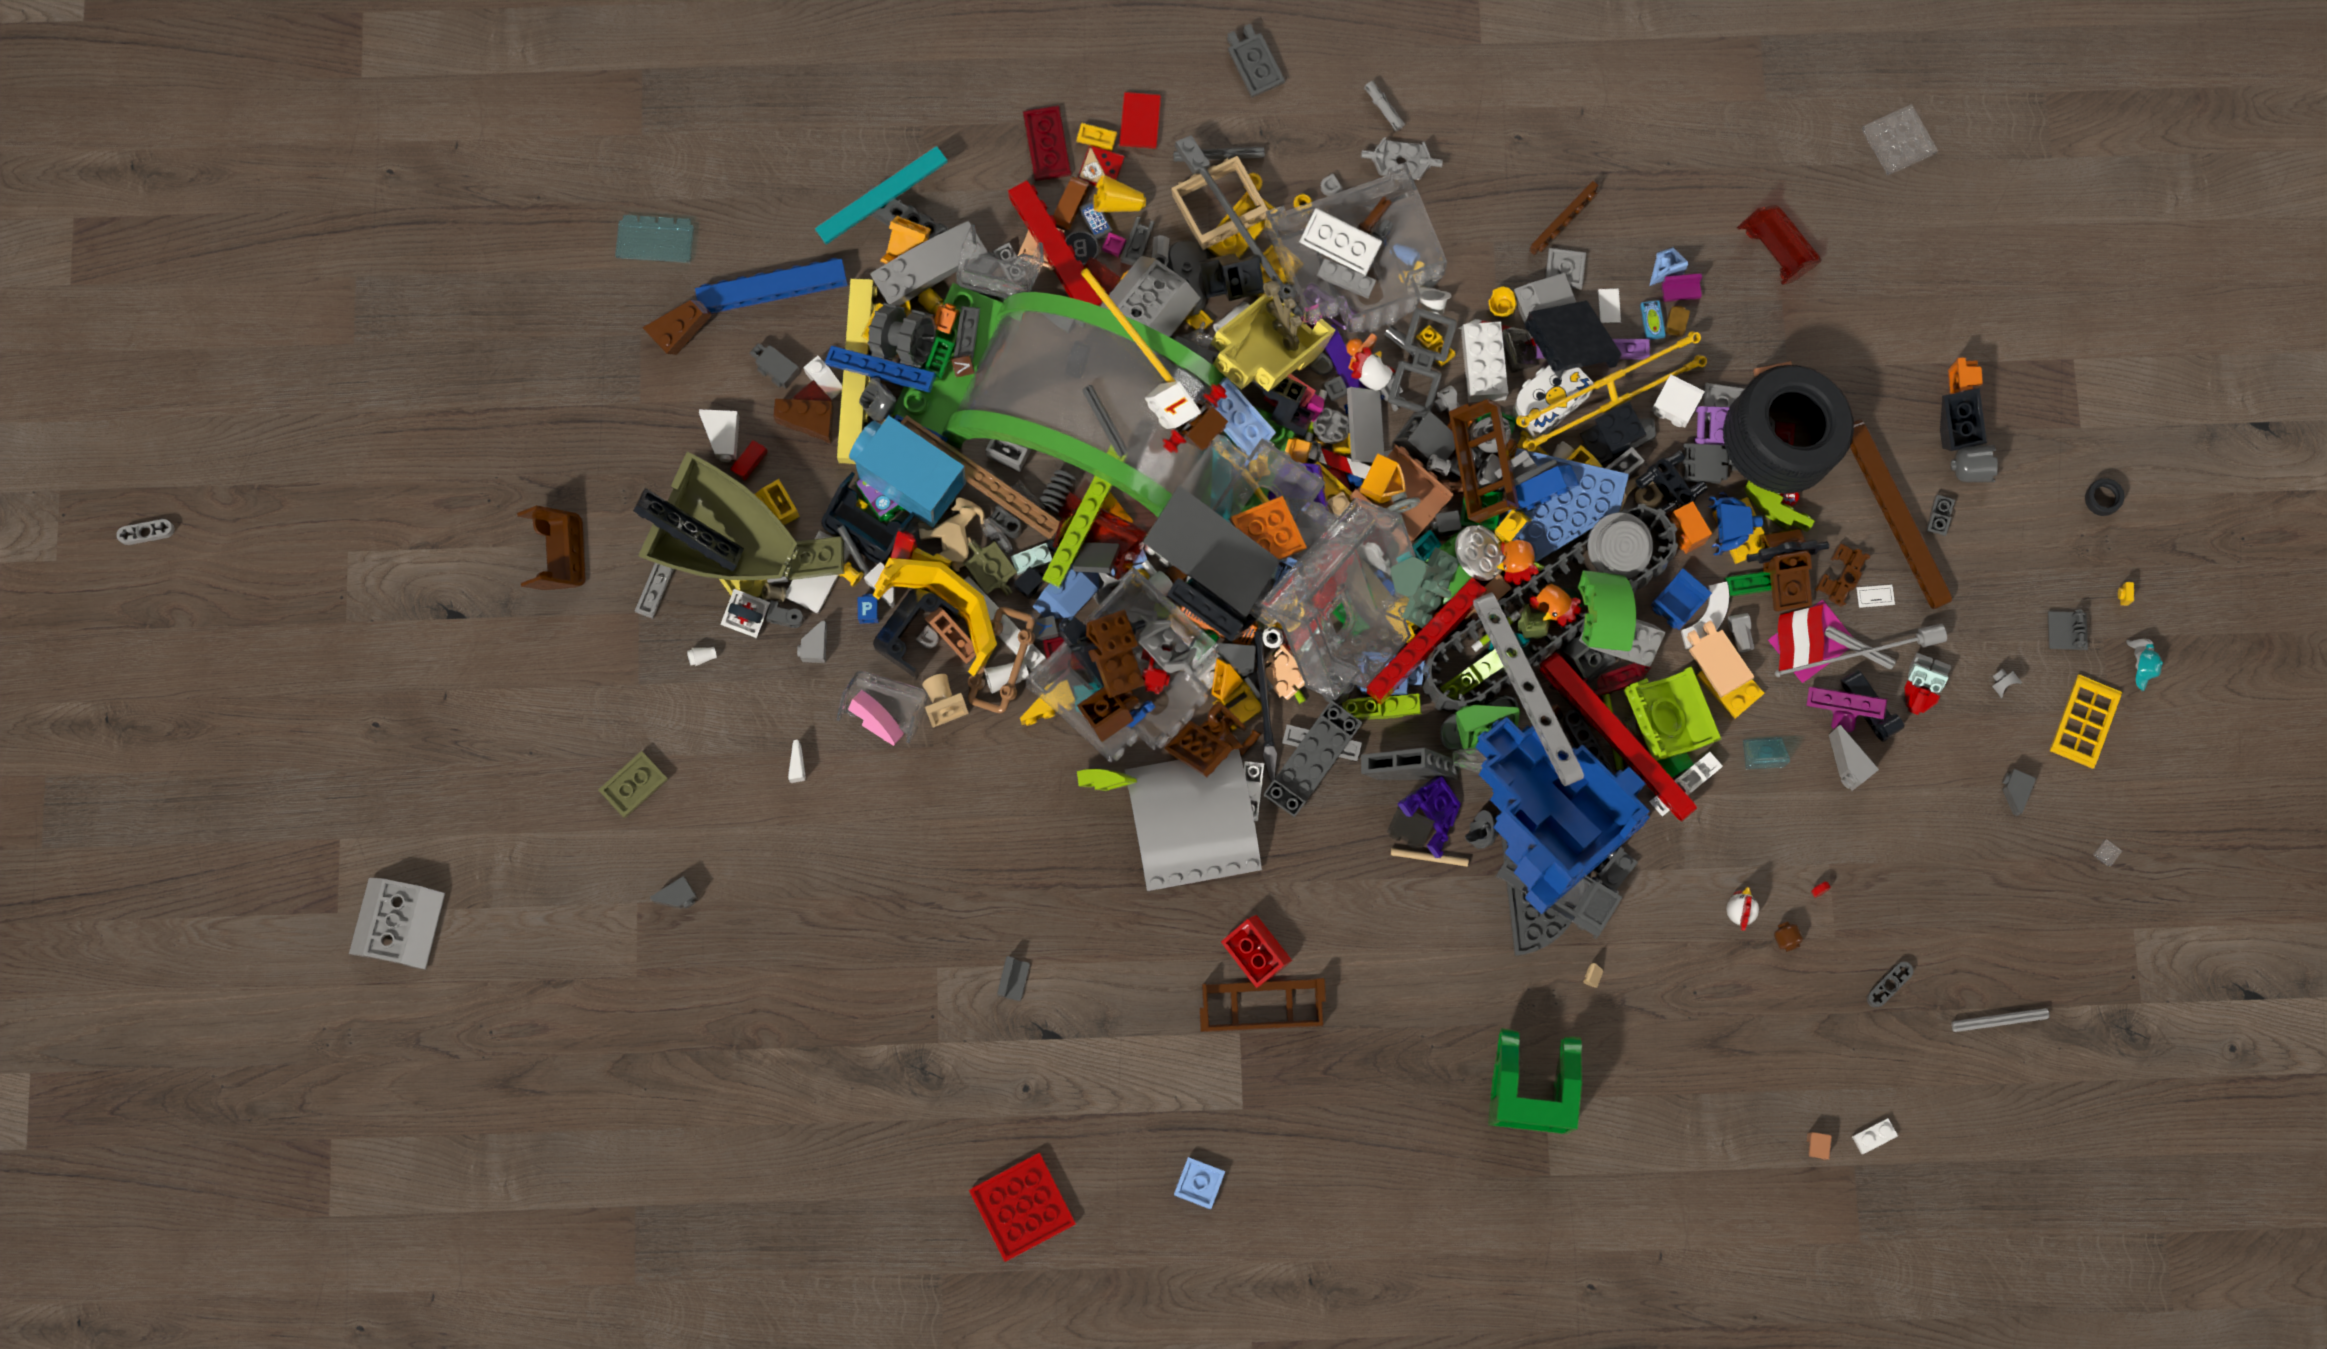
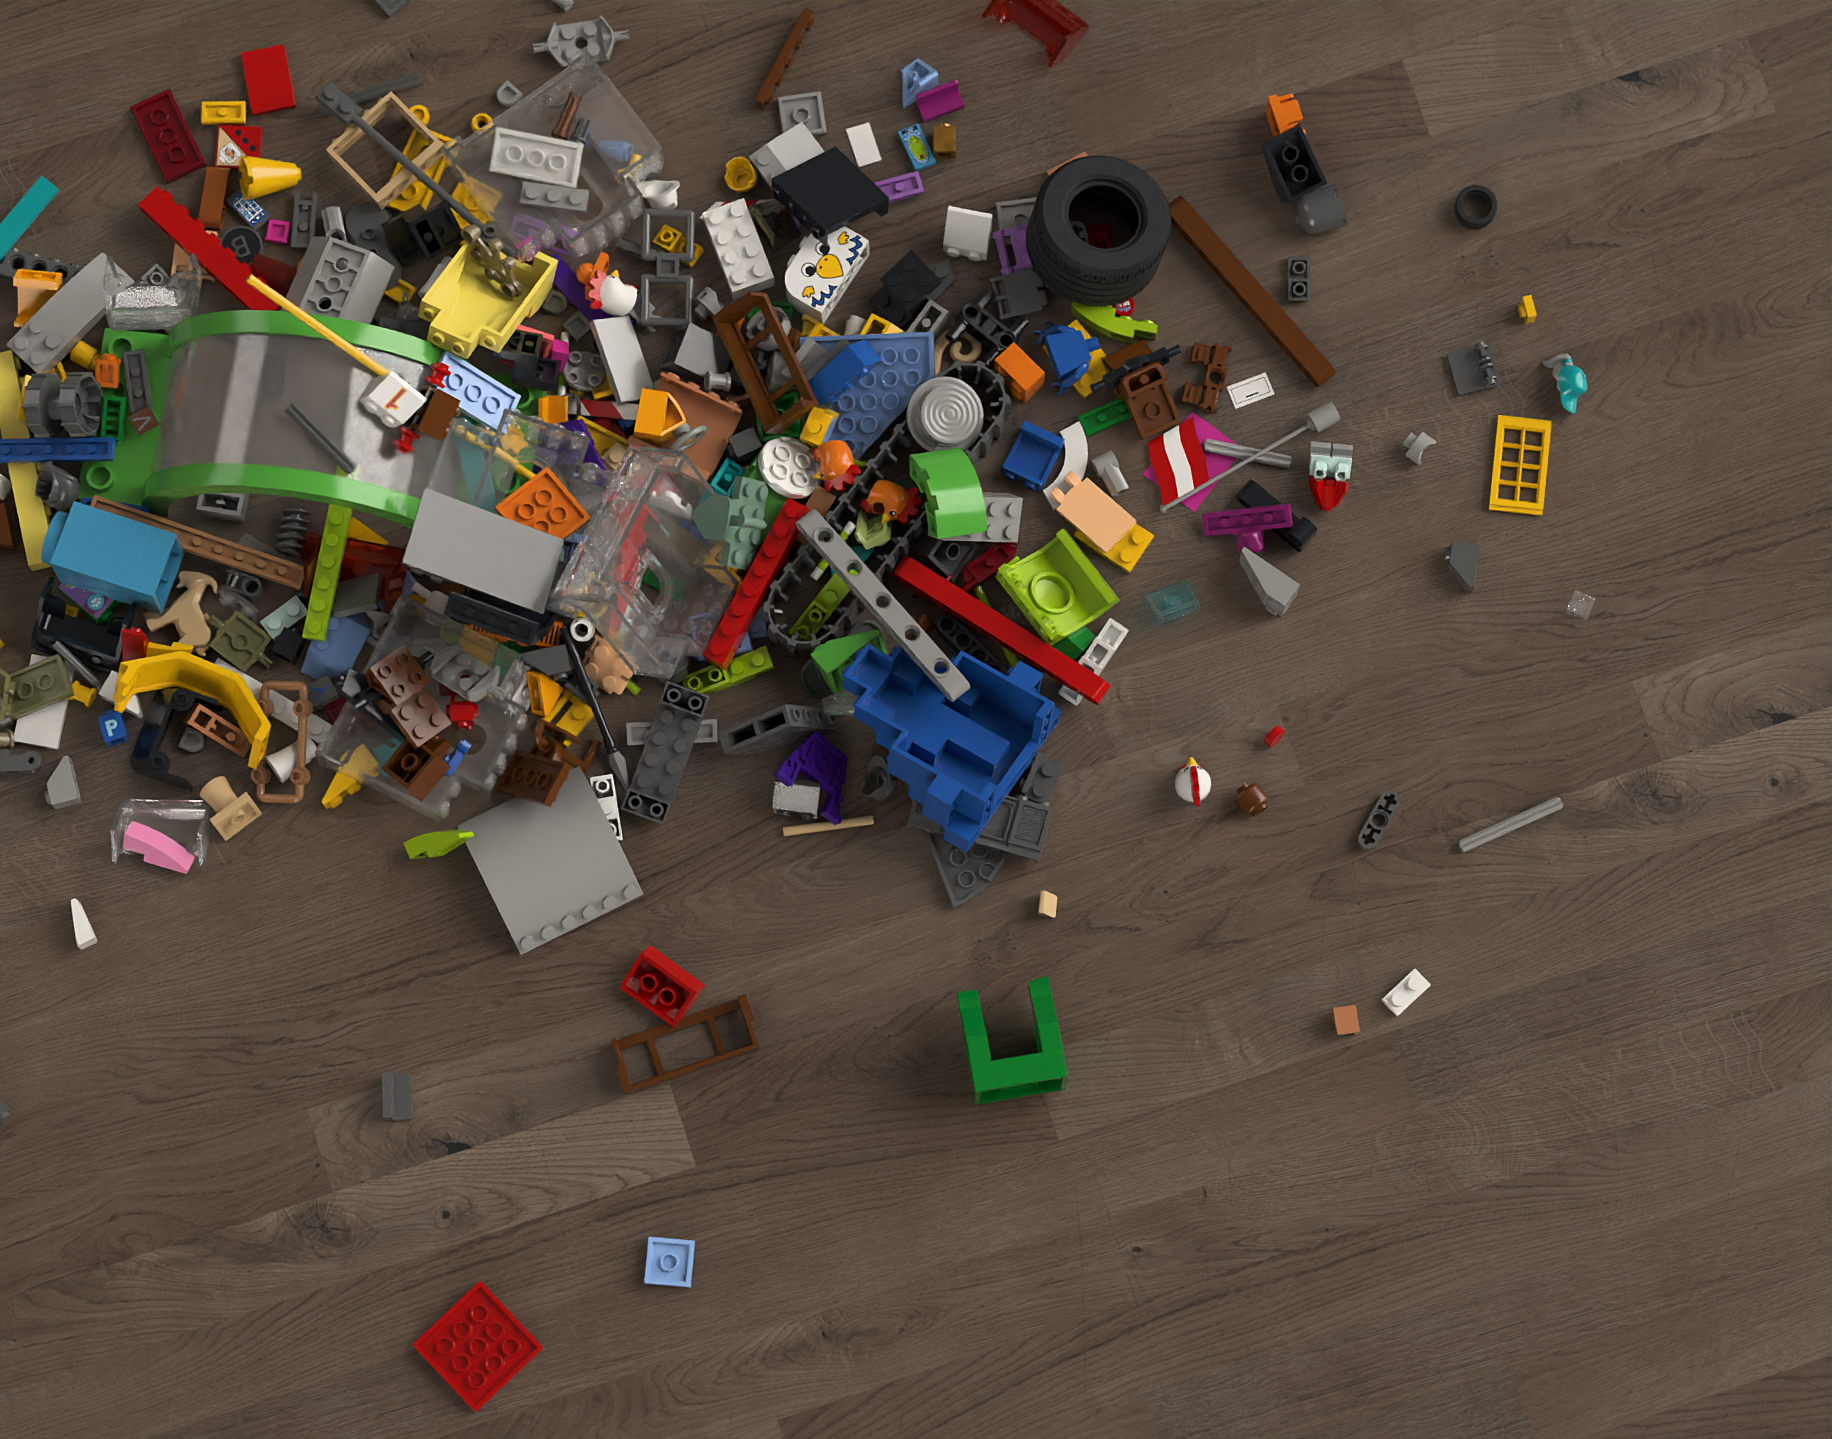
camera: 15 degrees left, 0 degrees up
(1615, 400) = (883, 231): yellow bar -> none

